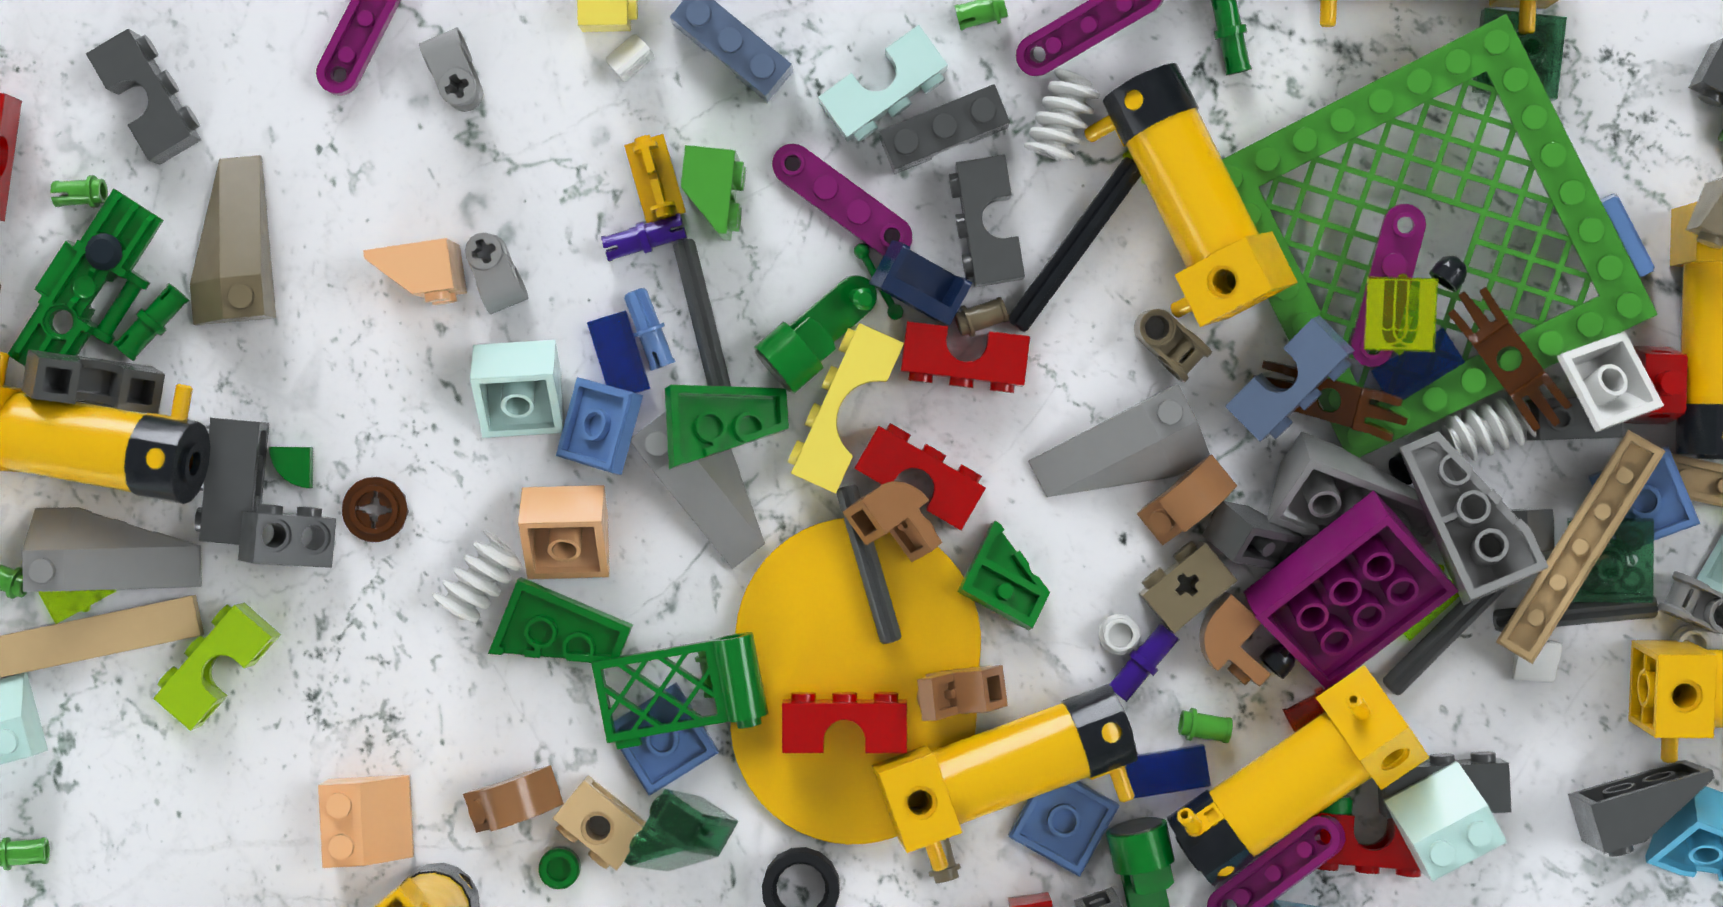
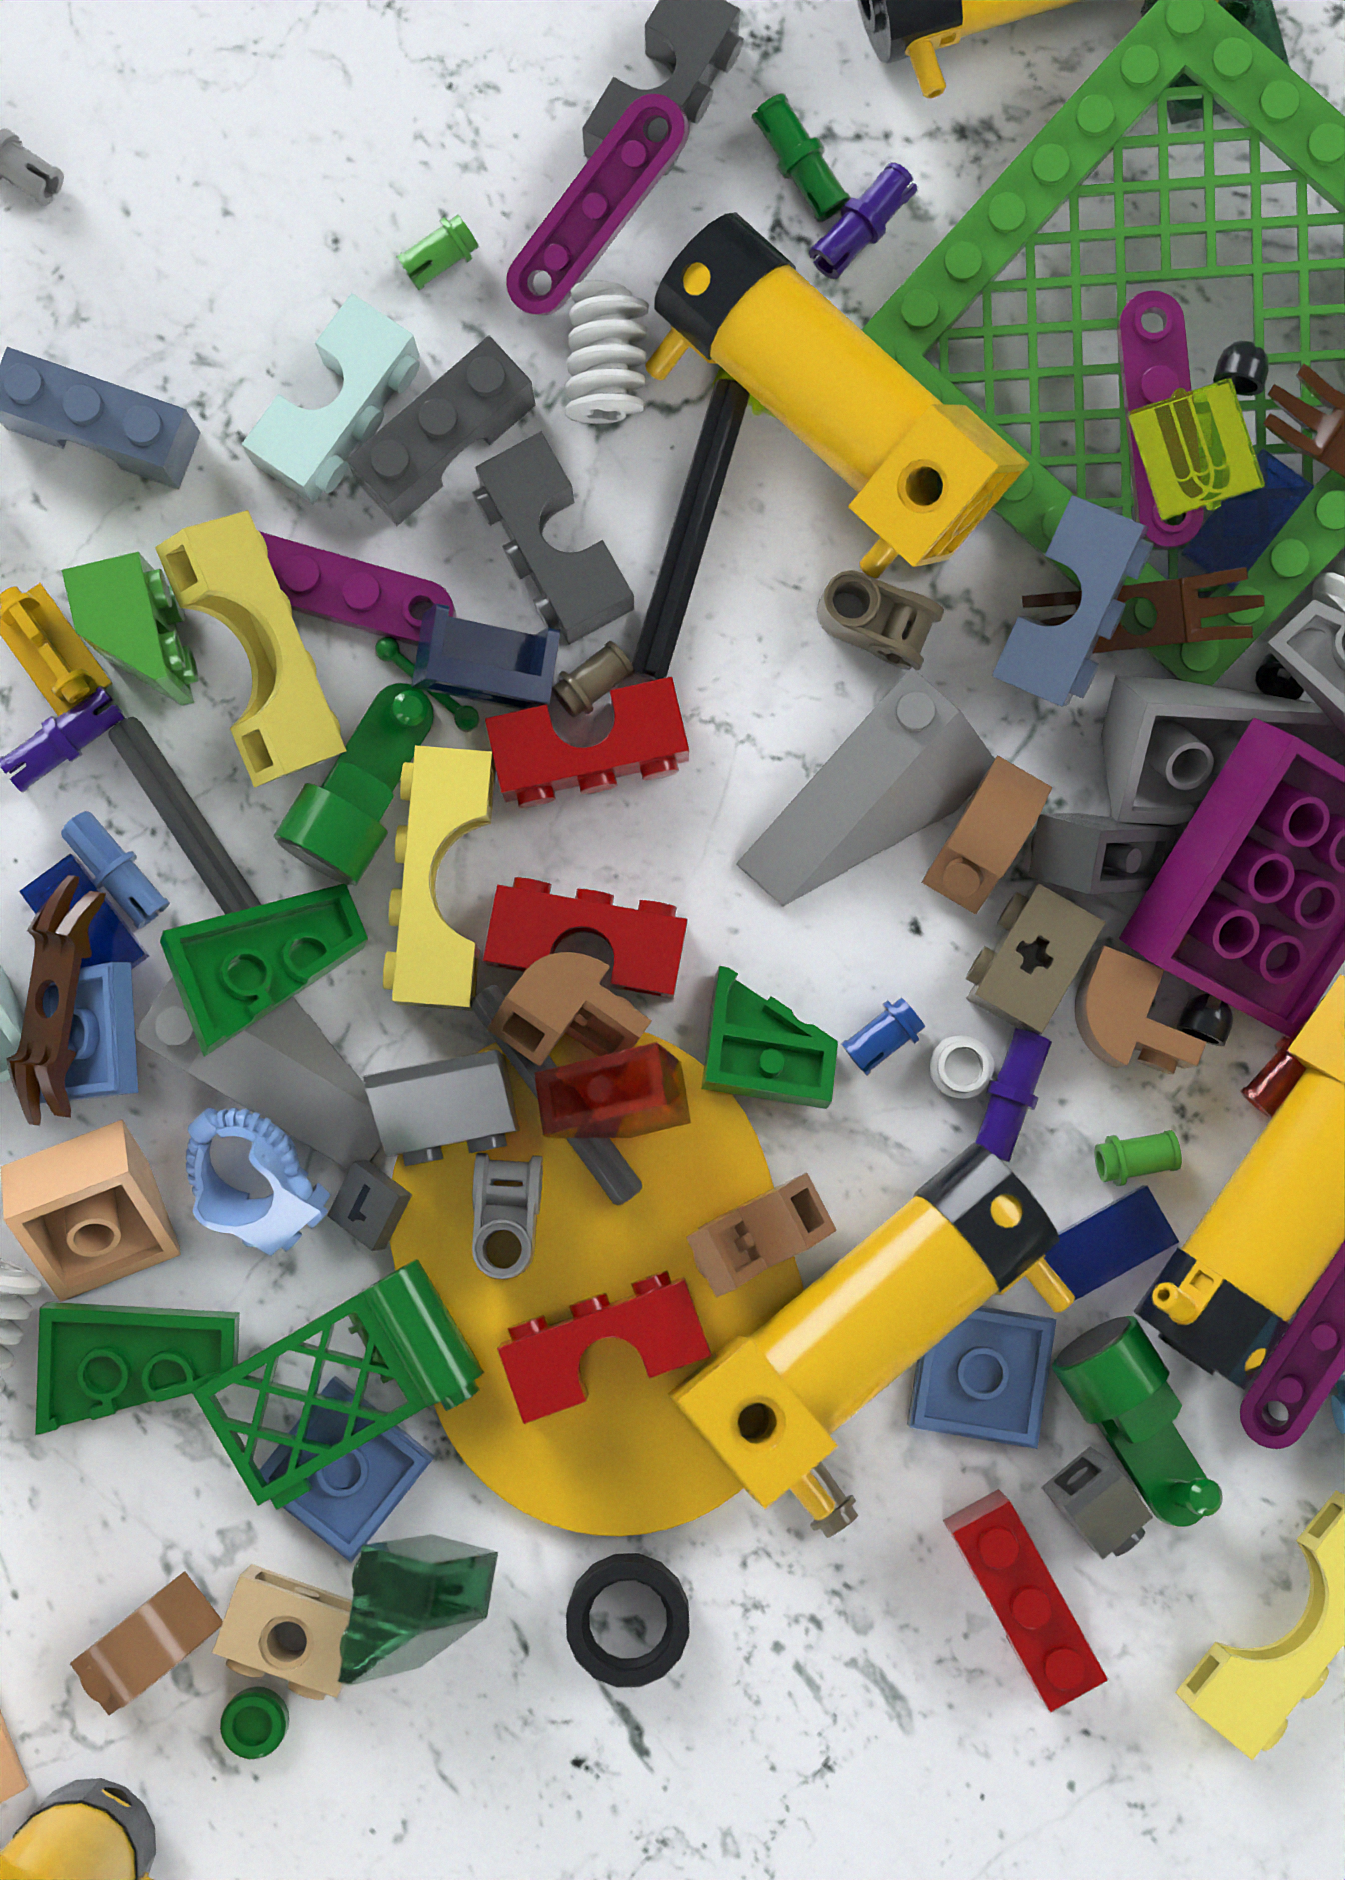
camera: 20 degrees left, 5 degrees down
(599, 373) = (43, 1049): none -> reddish brown piece
(666, 576) = (259, 1222): none -> light blue piece
(733, 589) = (369, 1205): none -> dark grey tile
(787, 275) = (227, 574): none -> light yellow arch
(800, 548) = (443, 1106): none -> slope
(815, 622) = (505, 1209): none -> light grey piece
(903, 578) = (613, 1095): none -> clear red slope
(1079, 598) = (884, 1035): none -> blue pin
(1254, 86) = (863, 220): none -> dark purple pin

